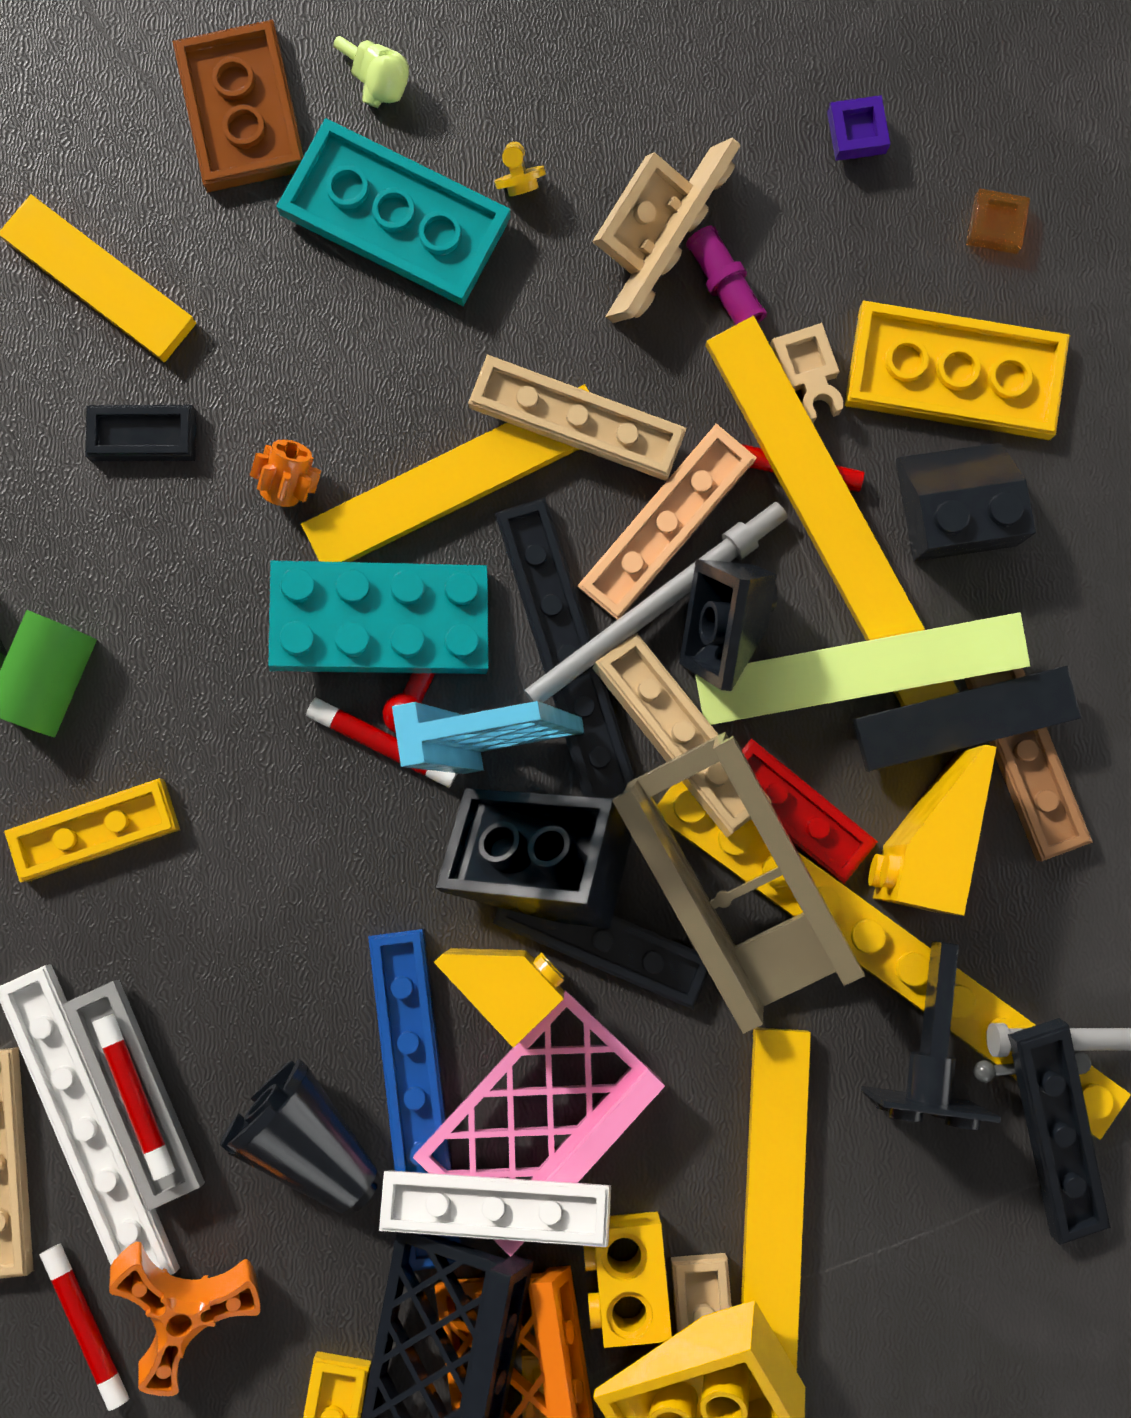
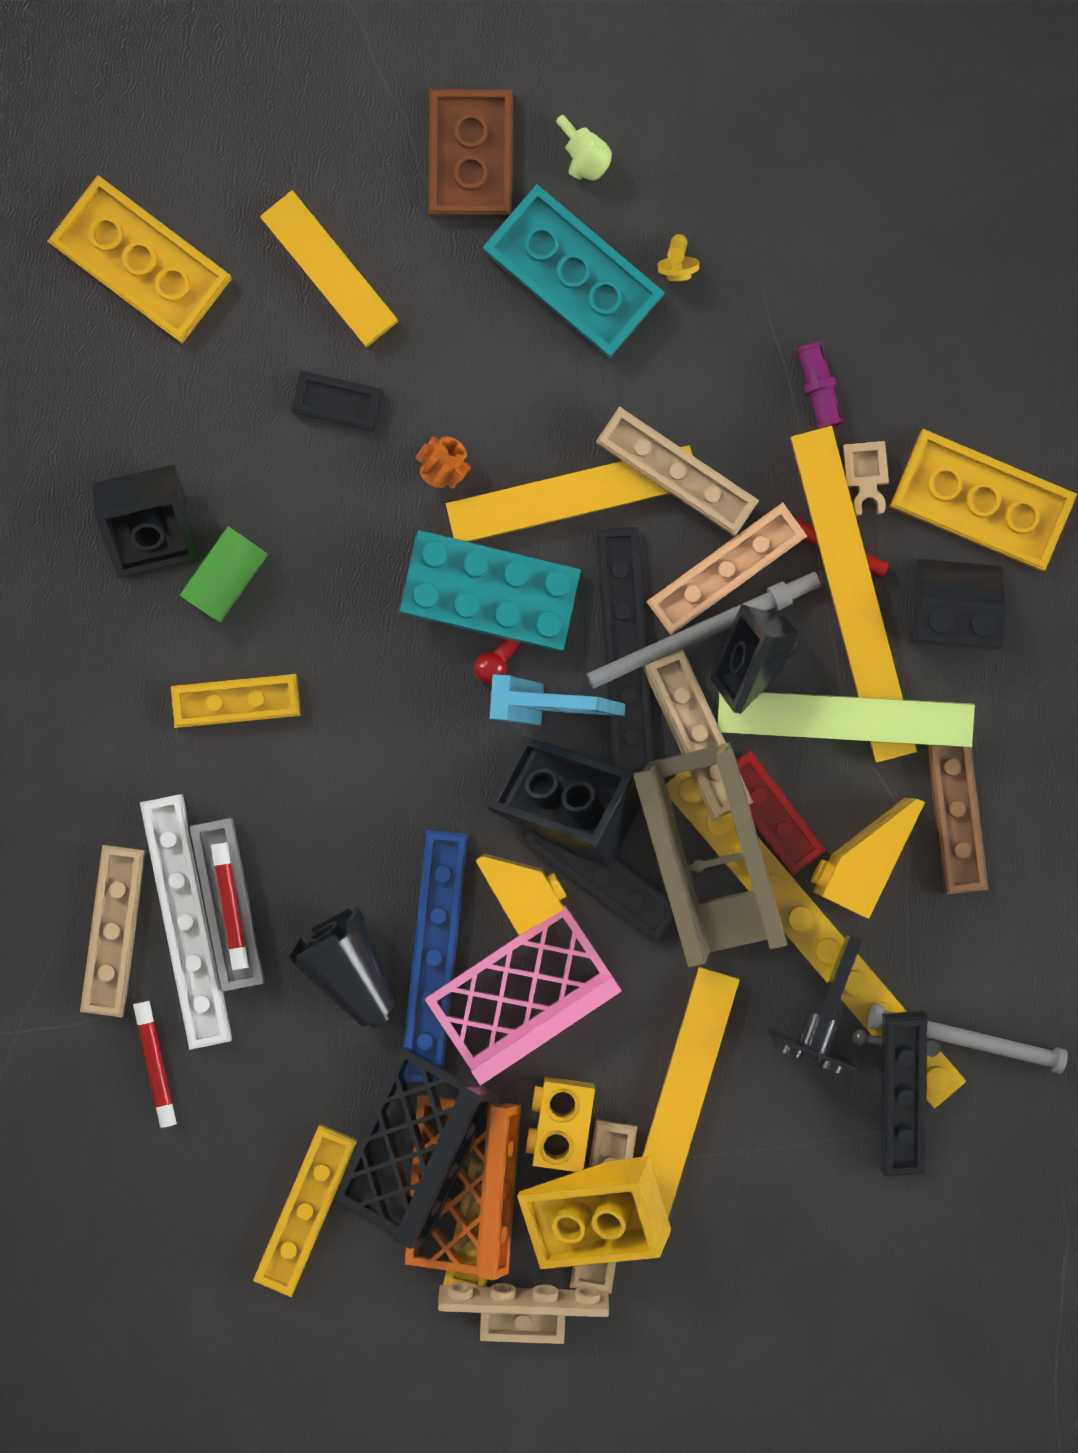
camera: 20 degrees right, 5 degrees up
(178, 1309) = (230, 1067): orange piece -> none
(367, 736) = (459, 678): red bar -> none
(496, 1208) = (477, 1048): white tile -> none
(654, 219) = (775, 327): tan bracket -> none
(858, 128) = (955, 288): dark purple plate -> none
(966, 718) = (916, 774): black tile -> none
(998, 221) = (1047, 388): clear orange tile -> none

